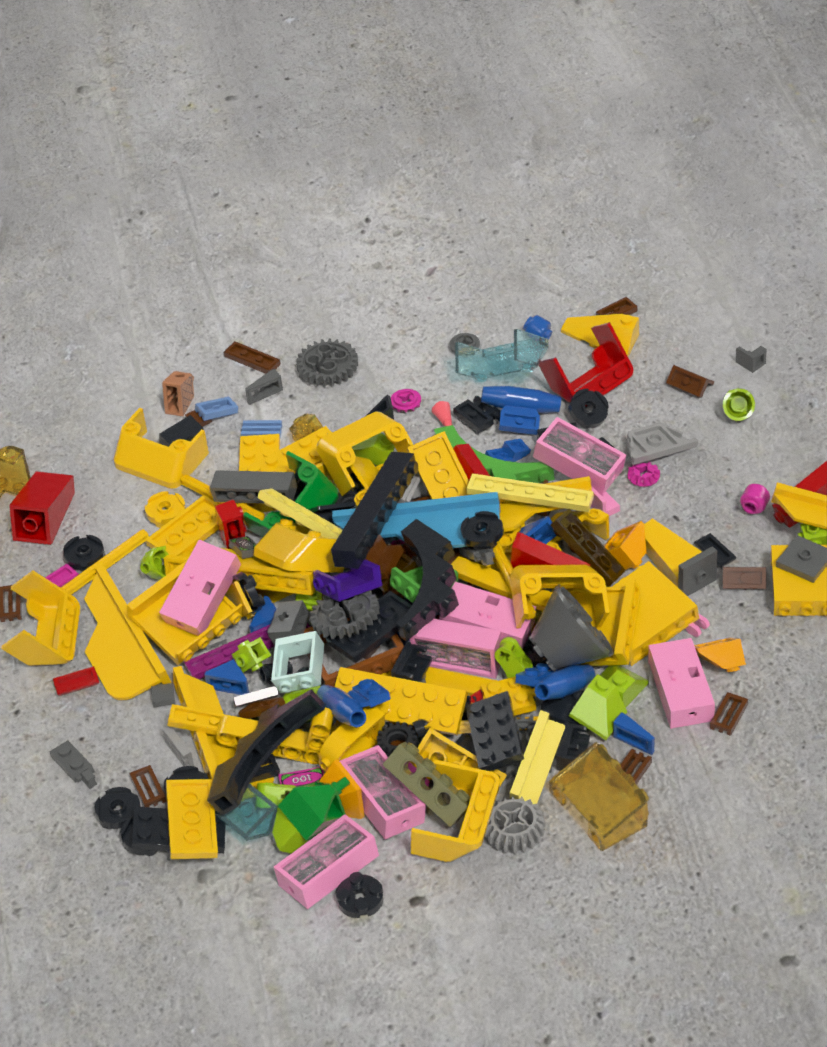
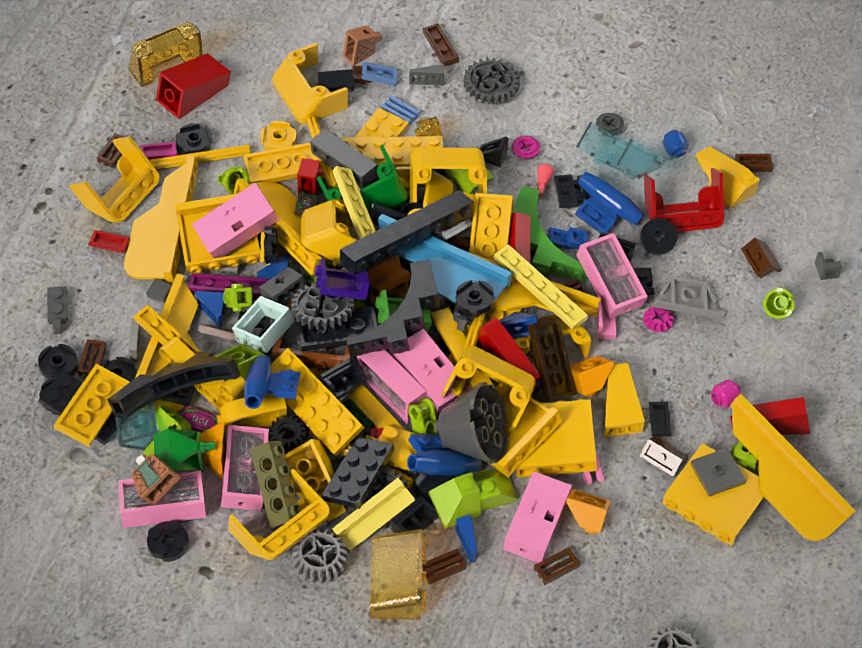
camera: 25 degrees right, 10 degrees up
(256, 708) = (213, 345): reddish brown plate -> none
(312, 837) = (153, 478): none -> nougat torso
(419, 727) = (309, 433): black hinge -> none
(698, 571) = (624, 431): dark grey plate -> none

